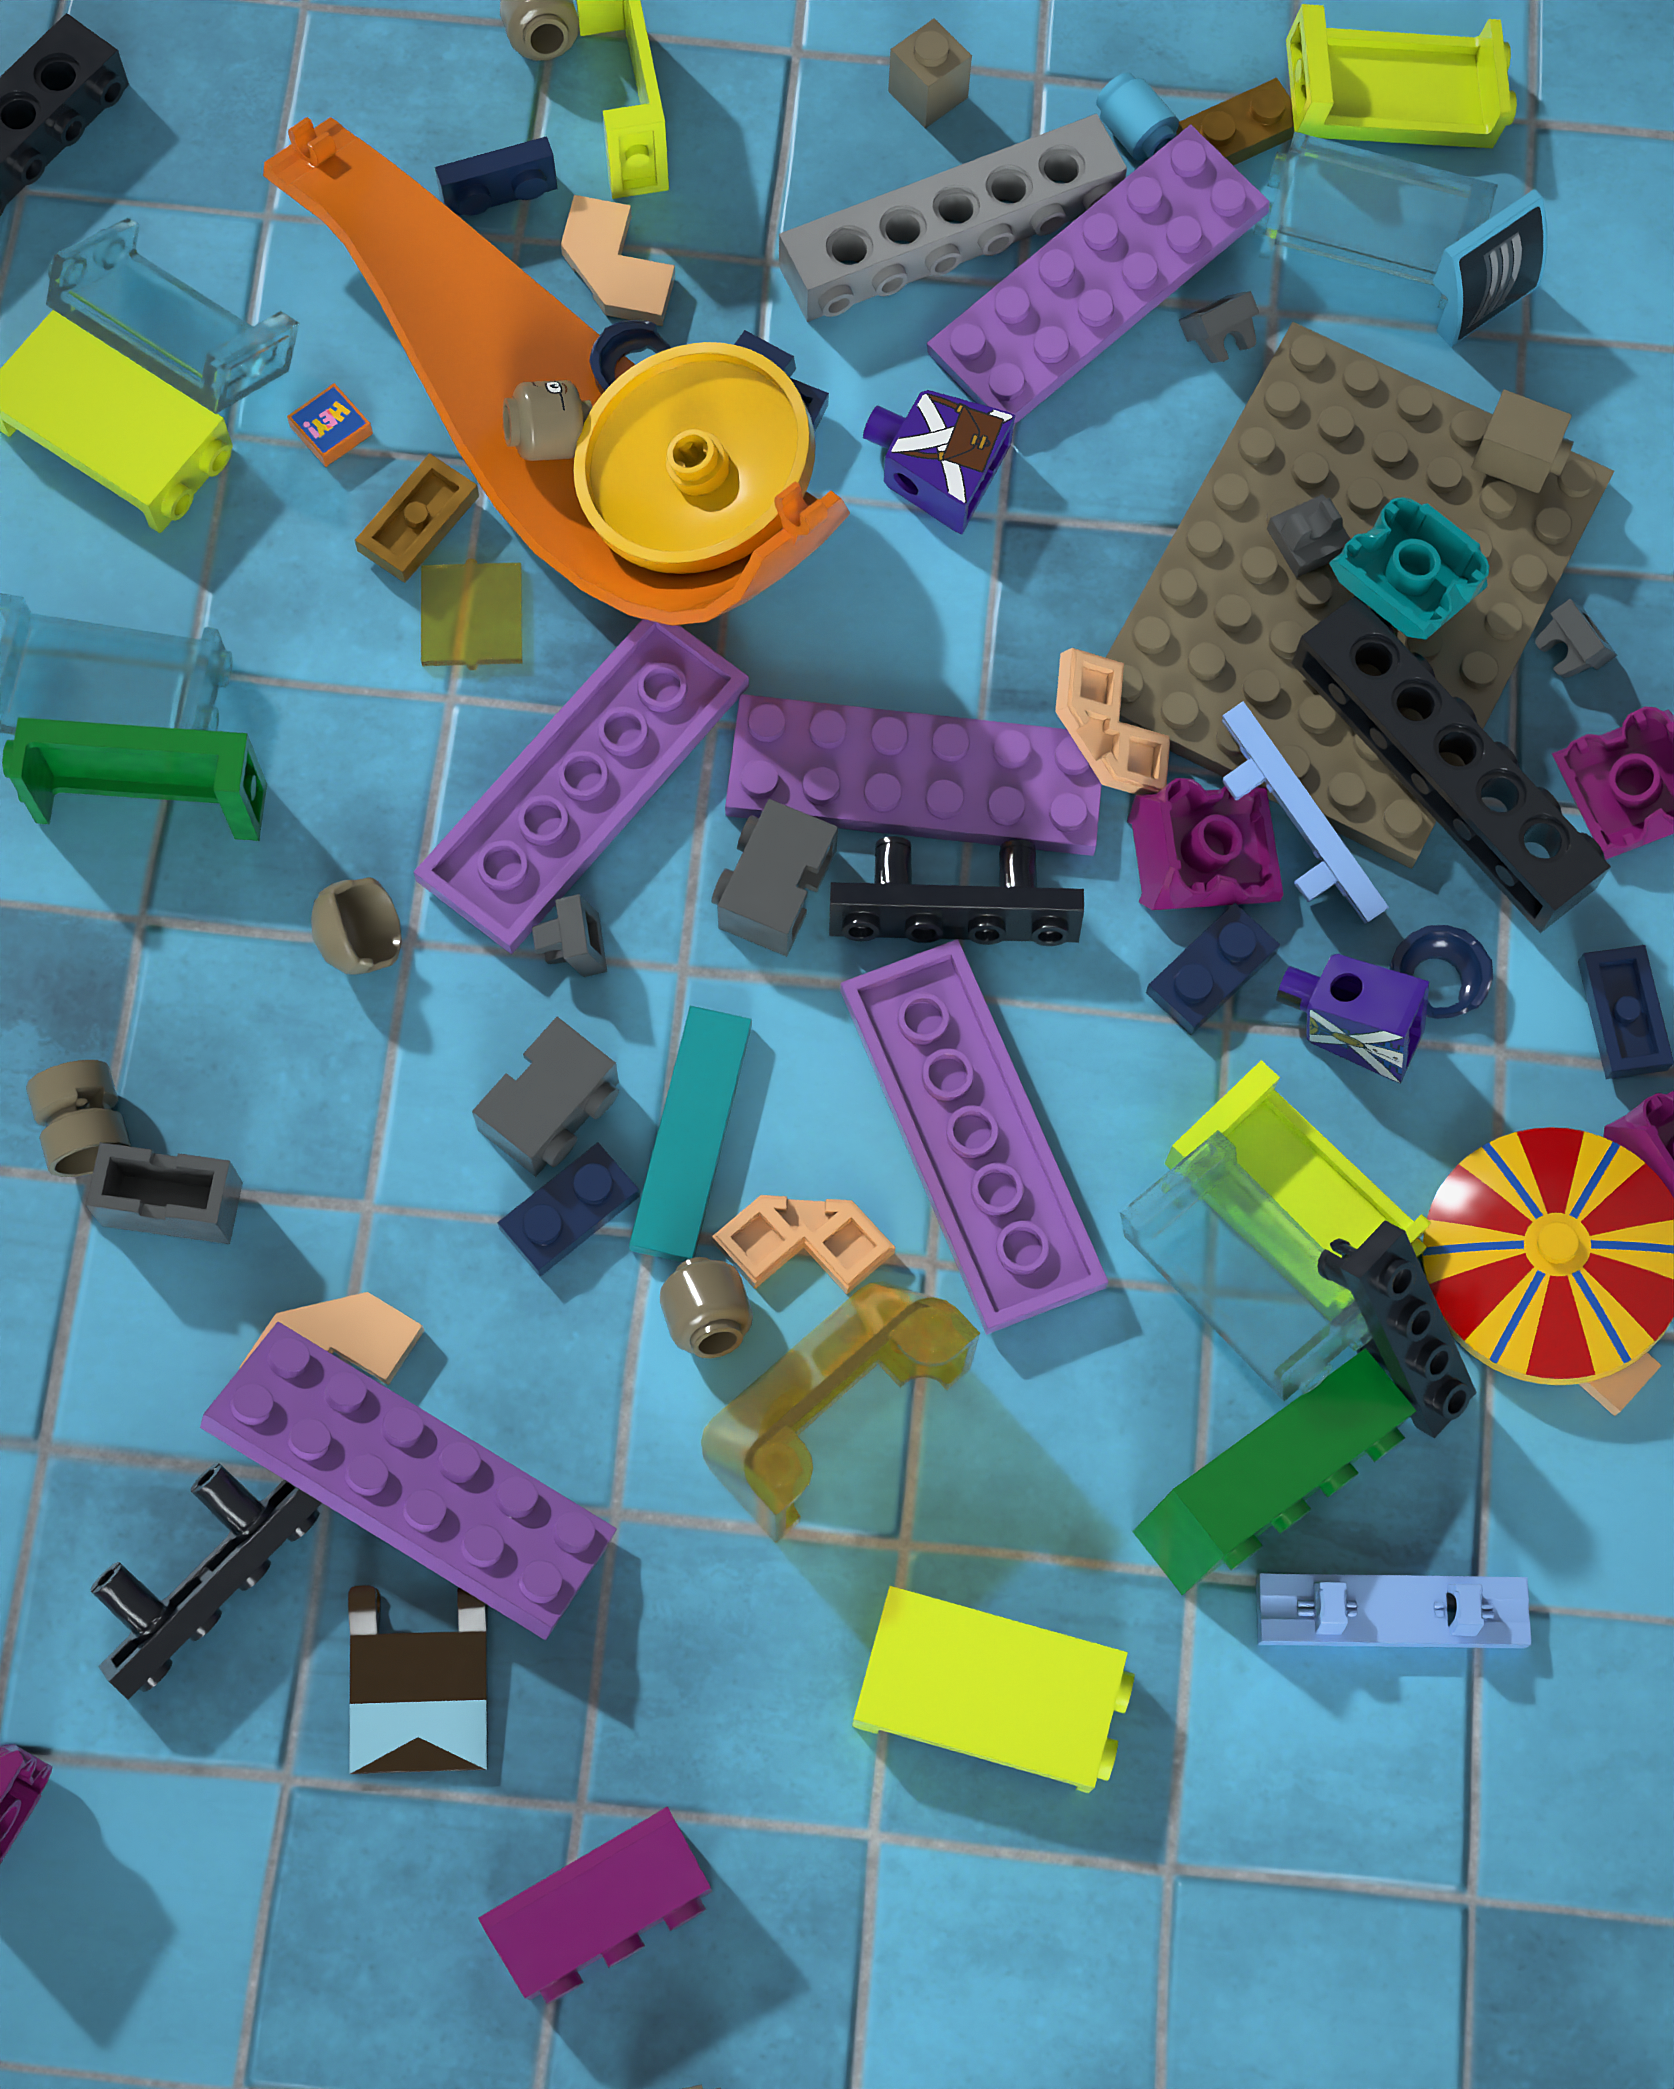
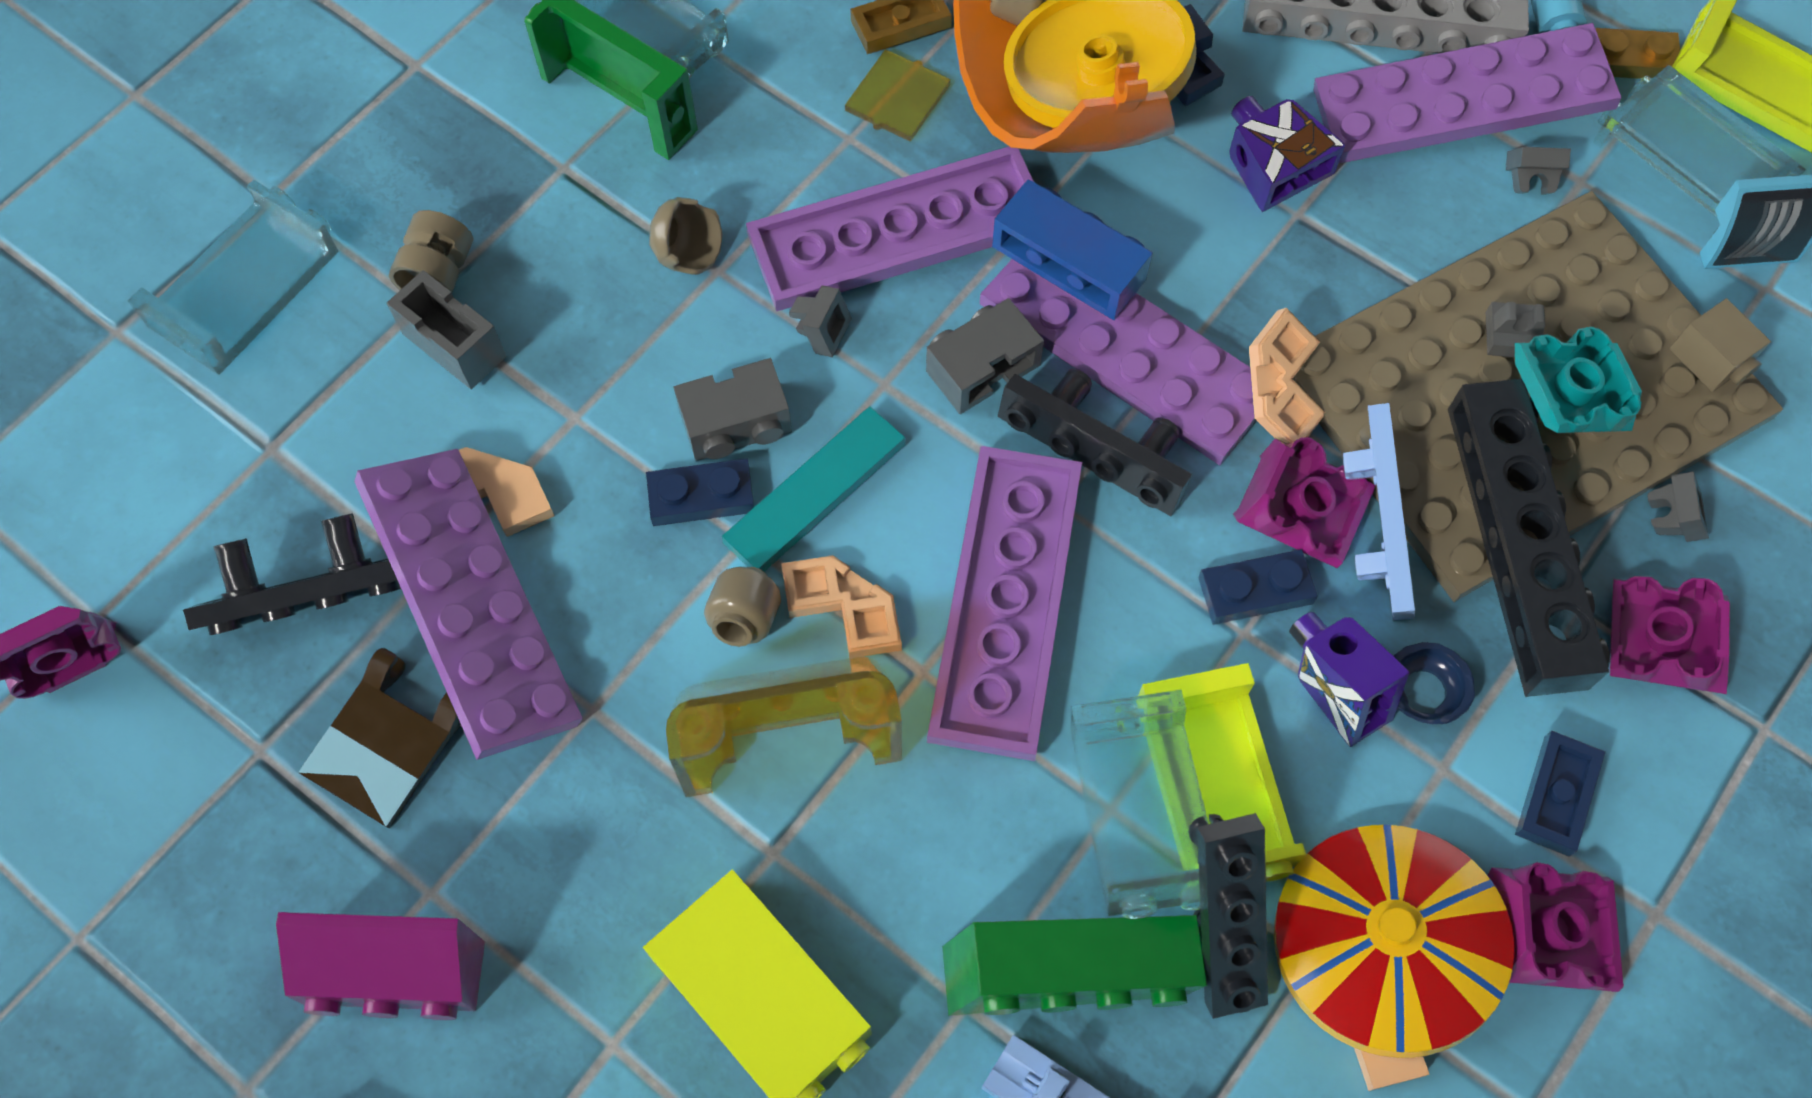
camera: 35 degrees right, 5 degrees down
(801, 703) = (1071, 249): none -> blue brick

